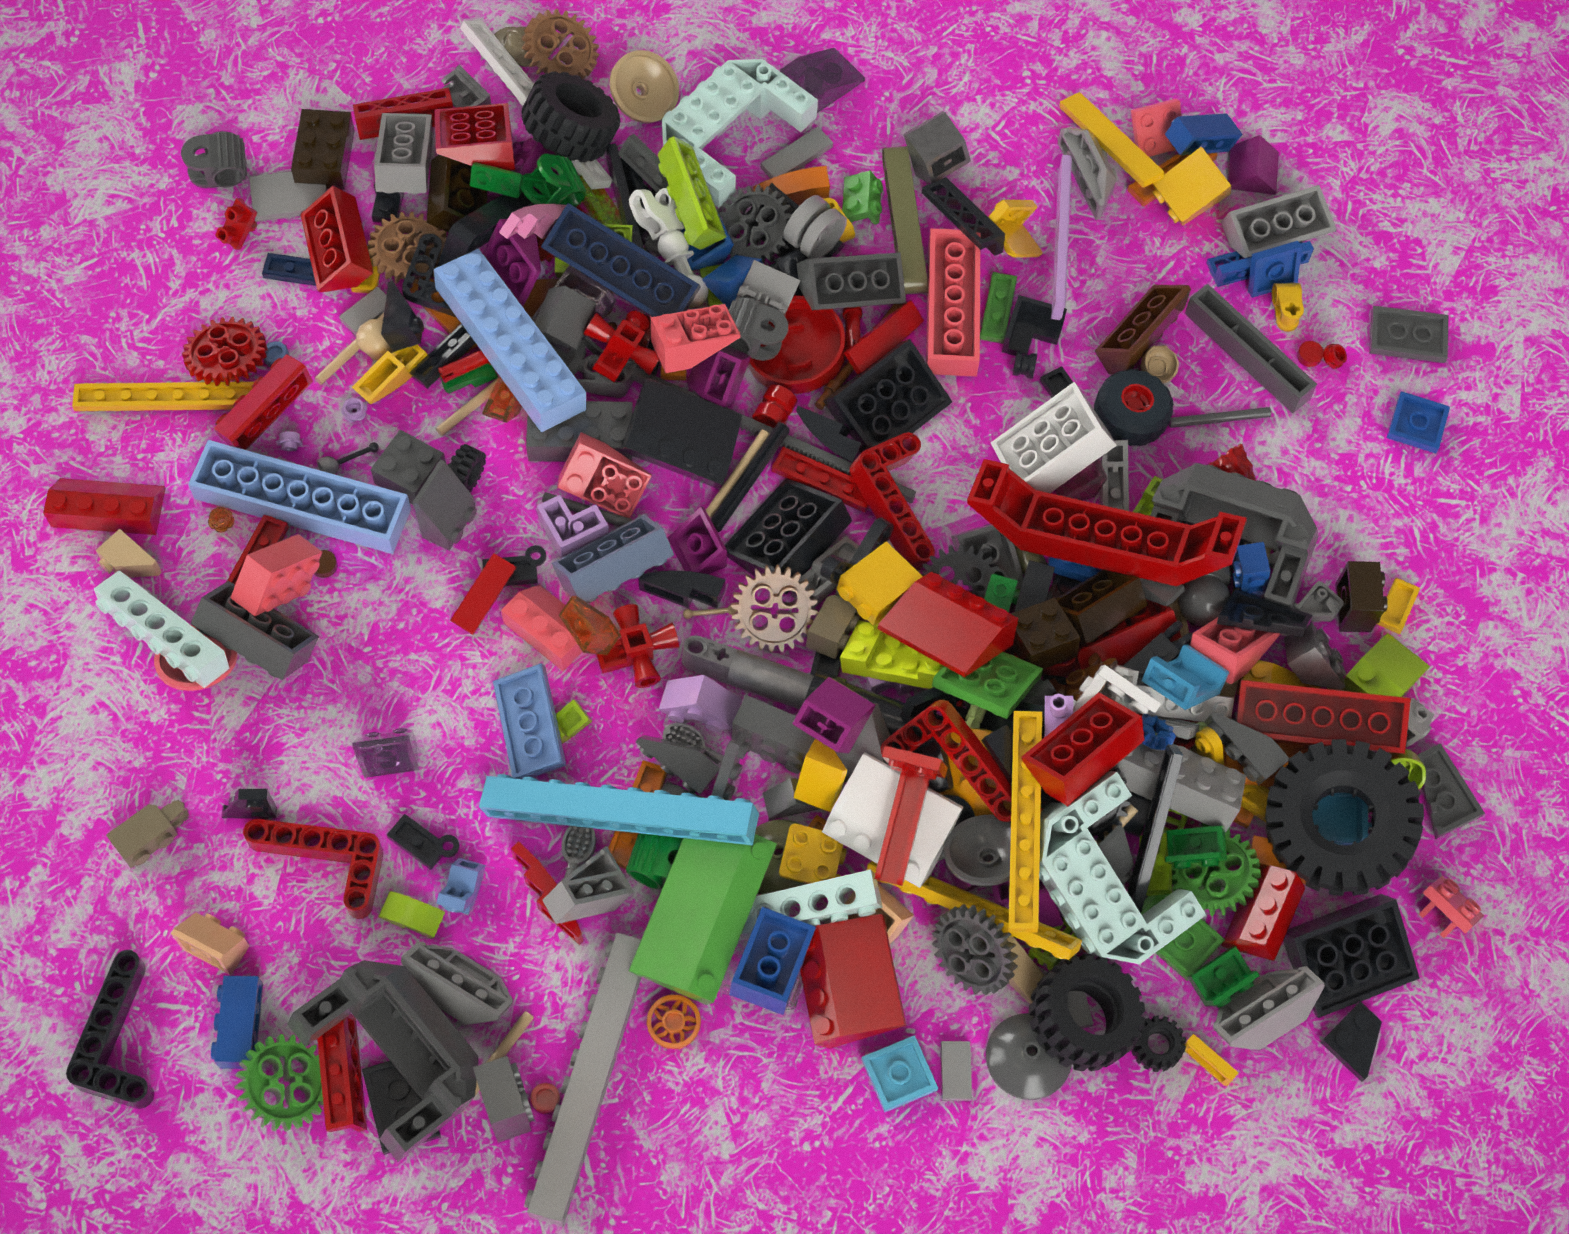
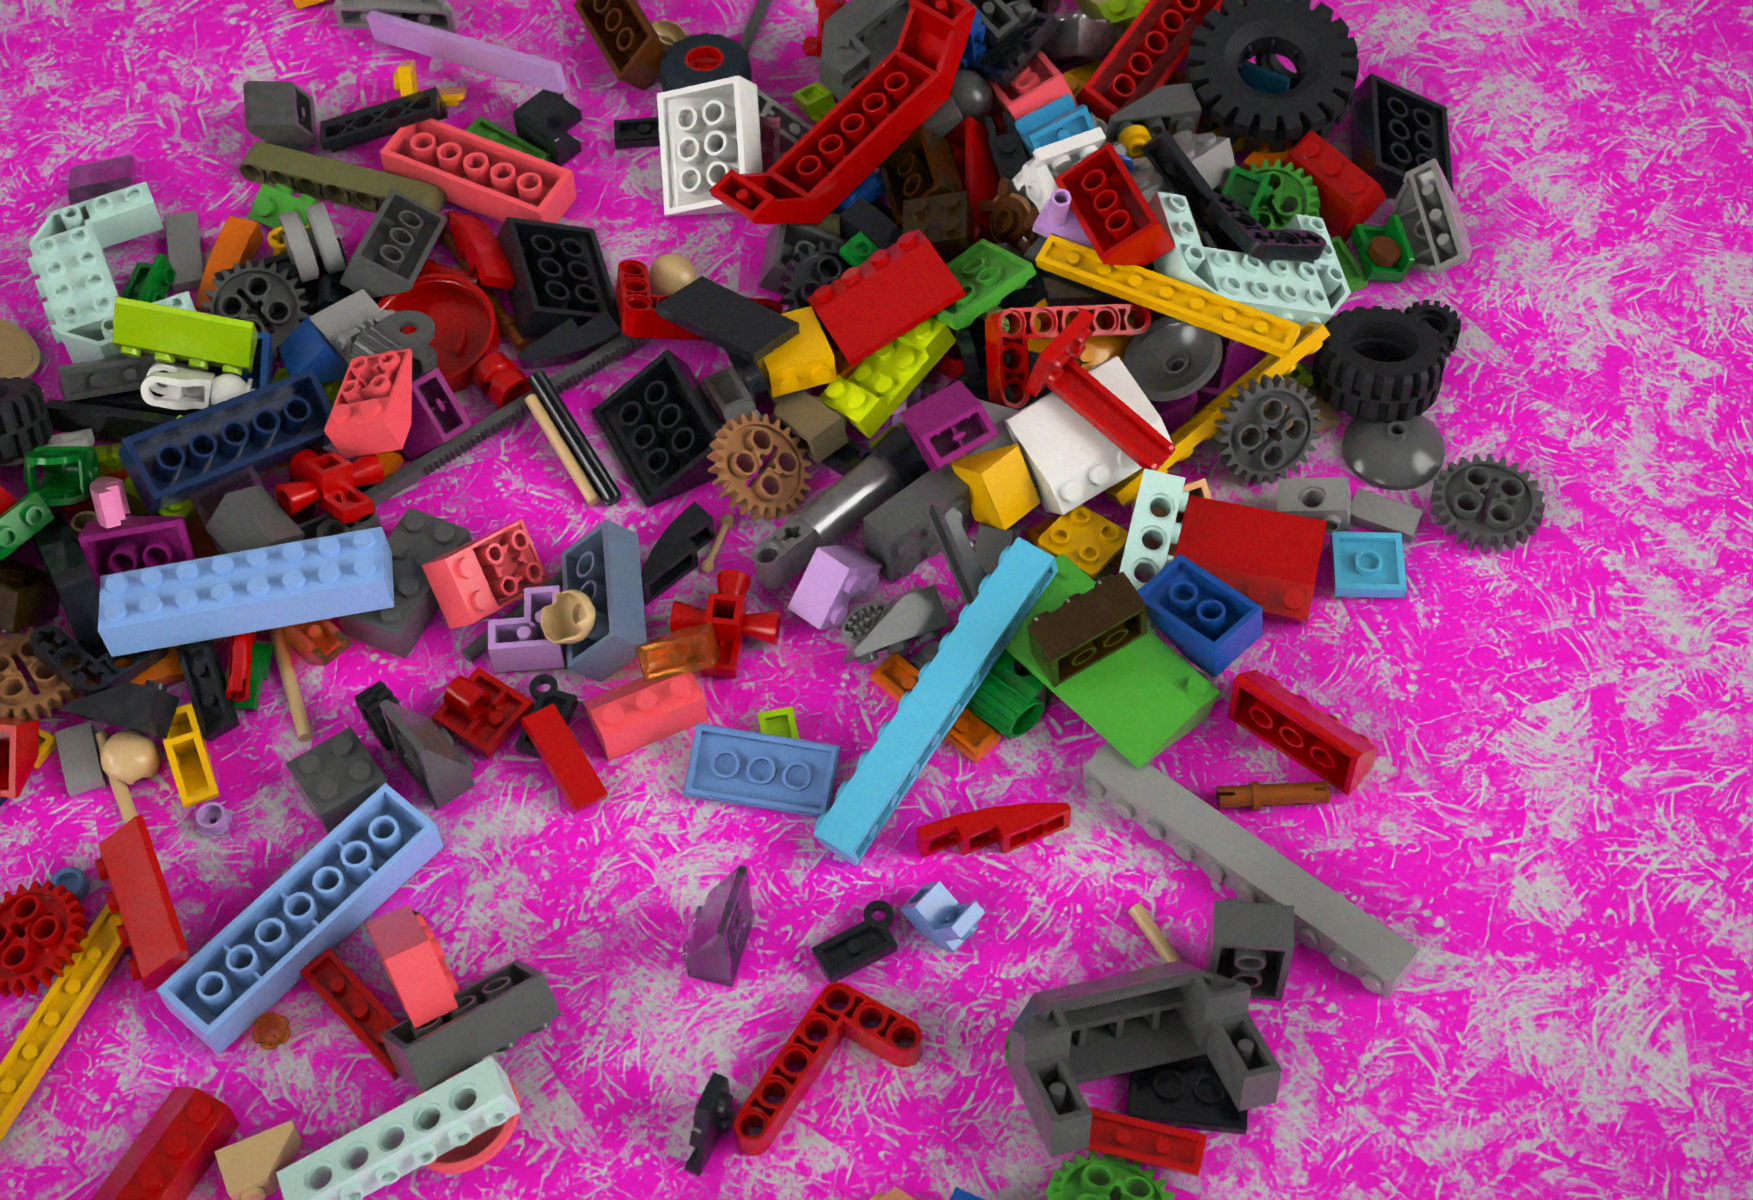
camera: 60 degrees left, 10 degrees down
(289, 441) = (209, 909): lavender plate -> none
(331, 465) = (275, 869): hinge -> none
(411, 913) = (946, 989): lime slope -> none
(458, 983) = (1078, 953): light grey wedge -> none
(501, 526) = (481, 711): none -> red plate
(575, 542) = (568, 617): none -> tan hair
(577, 847) = (949, 783): light grey piece -> none
(589, 890) = (1014, 771): light grey wedge -> none
(654, 1065) = (1260, 795): none -> dark orange pin
(673, 1021) = (1211, 759): orange wheel -> none
(682, 433) = (486, 472): black slope -> none
(699, 544) = (634, 506): magenta slope -> none
(701, 883) = (1087, 628): none -> dark brown brick
(721, 1075) = (1301, 730): none -> red slope
(745, 150) = (150, 280): none -> green bracket
(820, 477) = (601, 382): red plate -> none
(877, 526) = (727, 319): none -> black tile
(931, 474) = (670, 274): none -> tan hair
(931, 997) = (1318, 499): none -> light grey brick
(1003, 1172) = (1512, 512): none -> dark grey gear
(1024, 364) = (593, 147): black wheel -> none
(1129, 868) = (1261, 242): none -> black beam
(1210, 1060) = (1469, 292): yellow tile -> none
(1215, 978) = (1384, 251): none -> reddish brown tile
(1355, 1040) = (1489, 179): black wing -> none
(1446, 896) = (1398, 40): coral plate -> none

